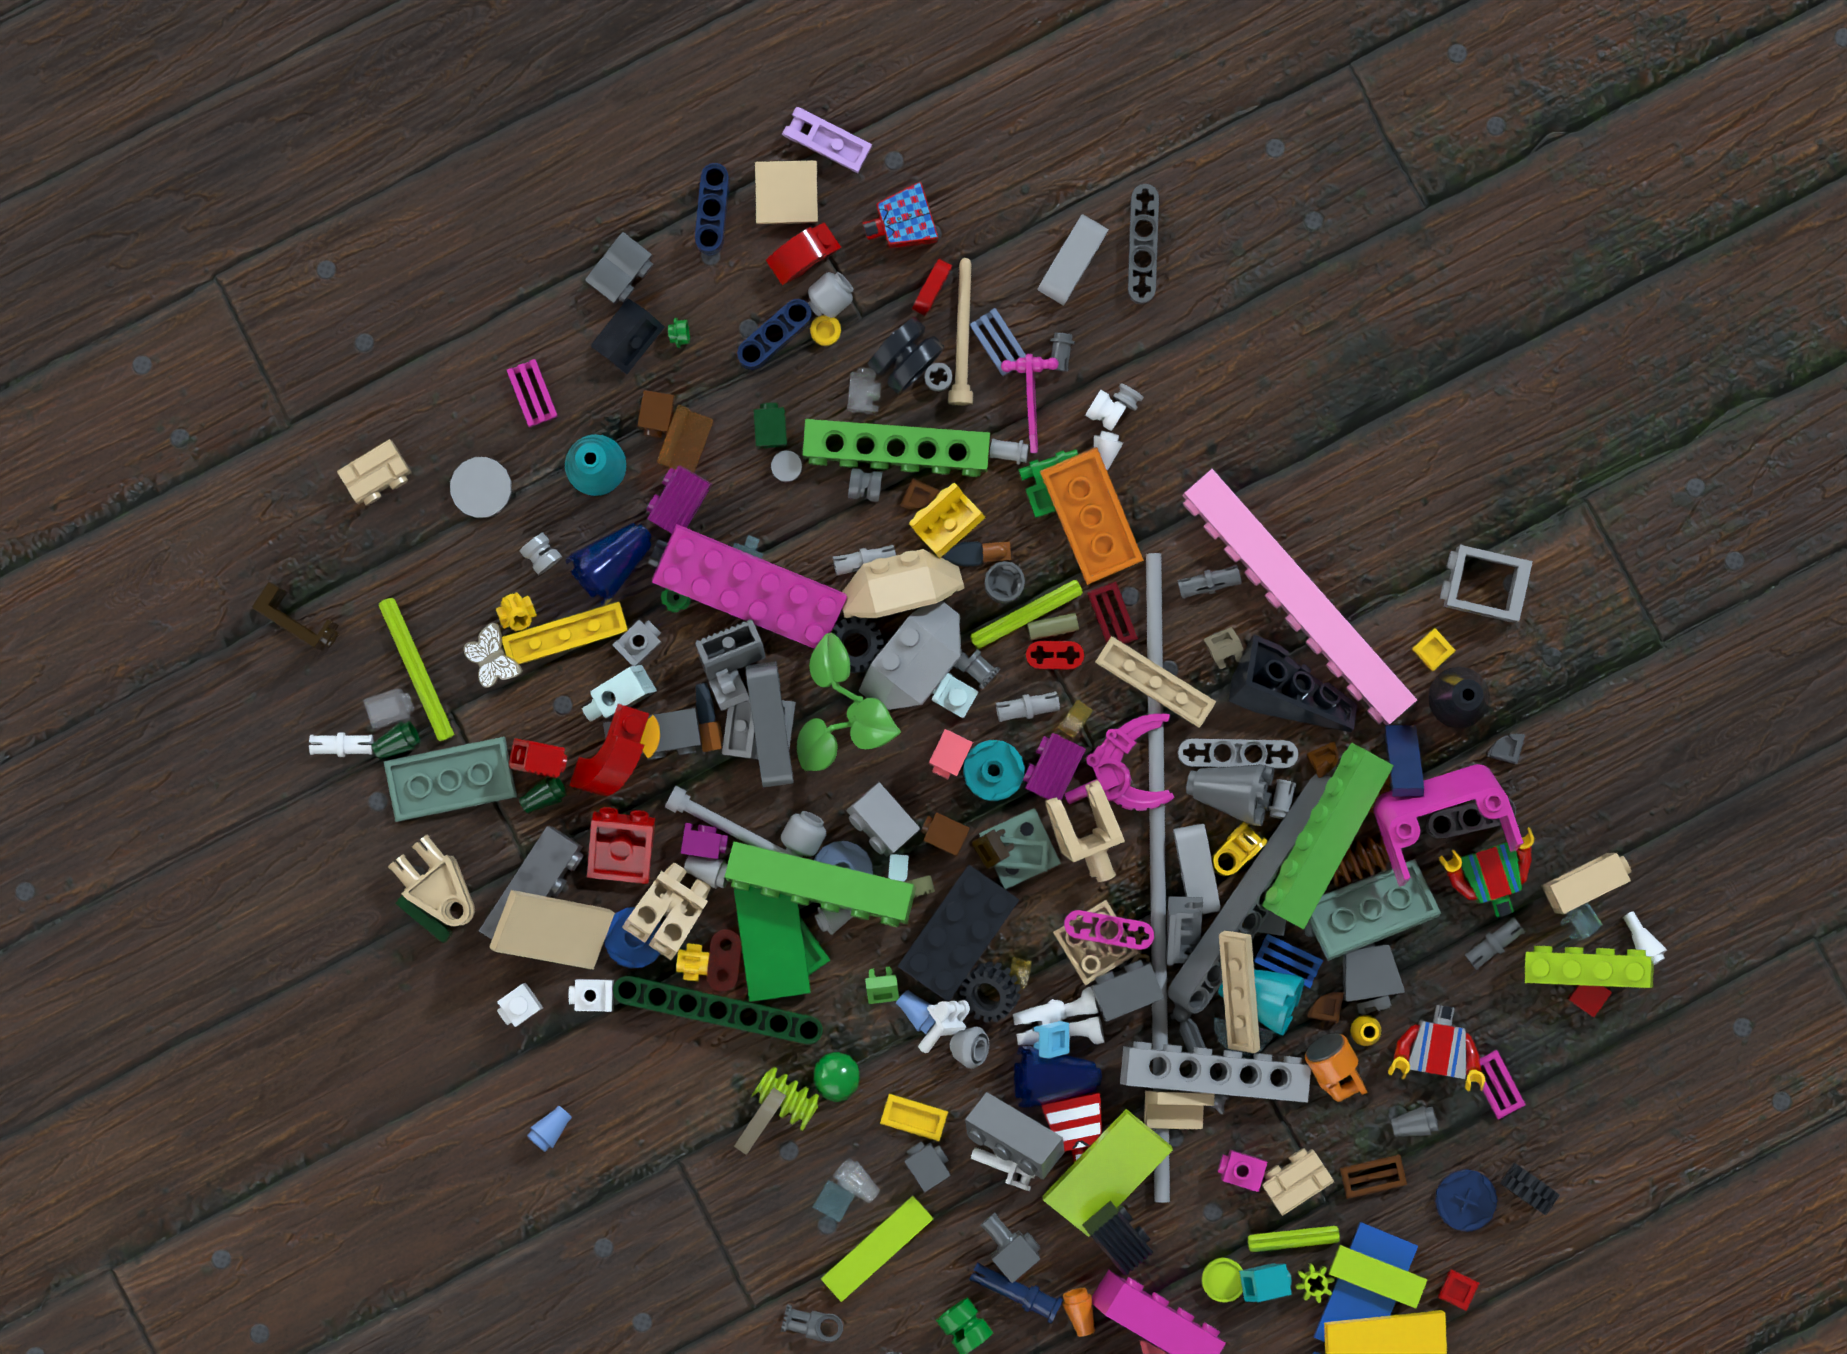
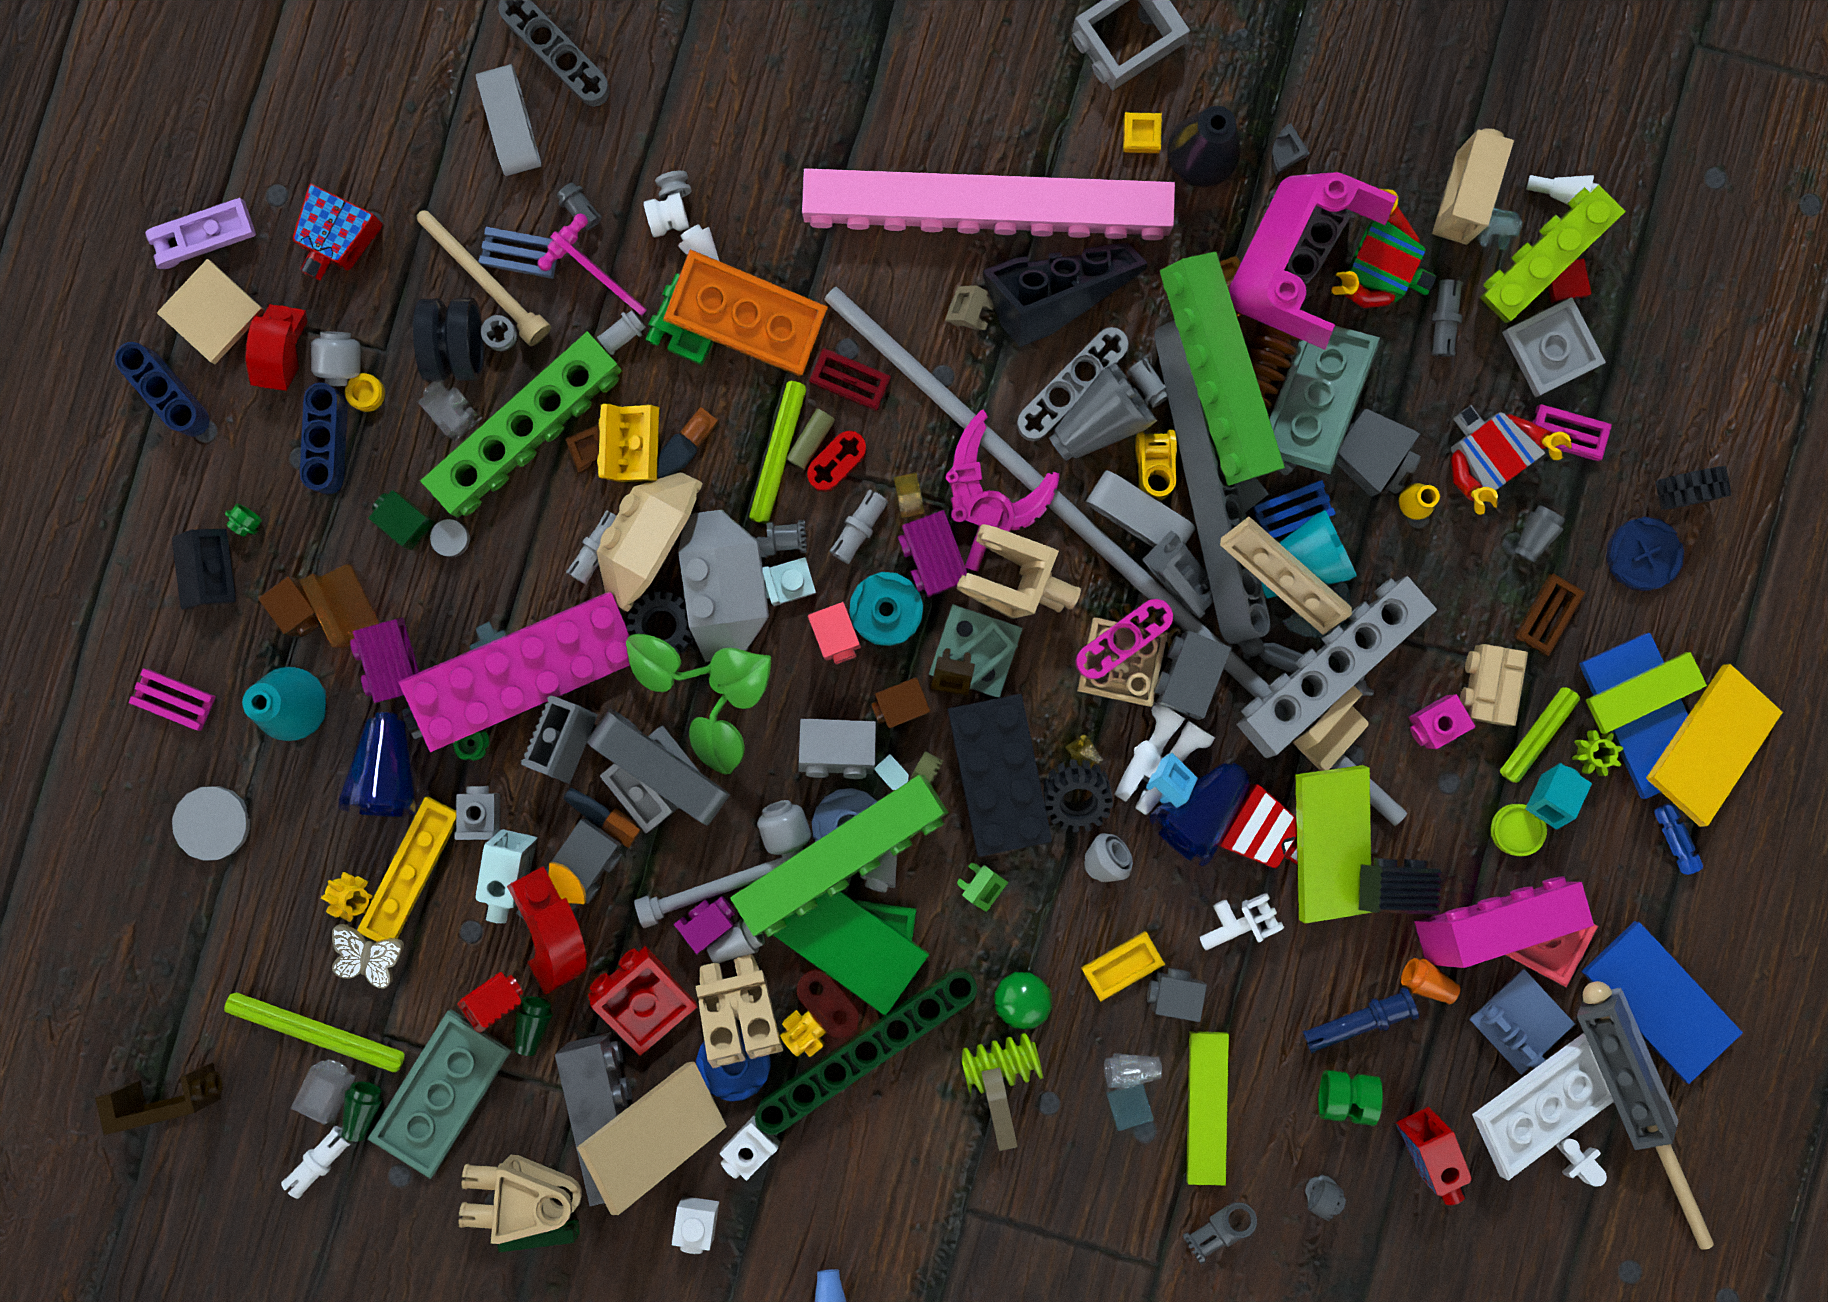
camera: 45 degrees left, 0 degrees up
(374, 473) = (105, 905): tan brick -> none
(535, 548) = (317, 826): light grey wheel -> none
(620, 268) = (136, 519): dark grey brick -> none
(728, 689) = (593, 773): light grey tile -> none
(865, 485) = (530, 484): dark grey wheel -> none
(916, 1011) = (1035, 874): medium blue cone -> none
(932, 287) = (415, 263): red beam -> none
(948, 1021) = (1067, 857): white arm -> none
(1004, 582) = (730, 443): dark grey wheel -> none
(1014, 1136) = (1226, 896): brick -> none
(1014, 1252) = (1328, 993): dark grey brick -> none
(1155, 682) = (943, 395): tan tile -> none
(1209, 581) = (900, 267): dark grey pin -> none
(1323, 759) = (1147, 315): reddish brown tile -> none
(1327, 1007) = (1365, 515): reddish brown tile -> none
(1331, 1061) = (1423, 555): orange piece -> none
(1404, 754) = (1205, 234): dark blue tile -> none
(1458, 1289) = (1716, 634): red tile -> none
(1539, 1025) = (1553, 347): none -> light grey plate

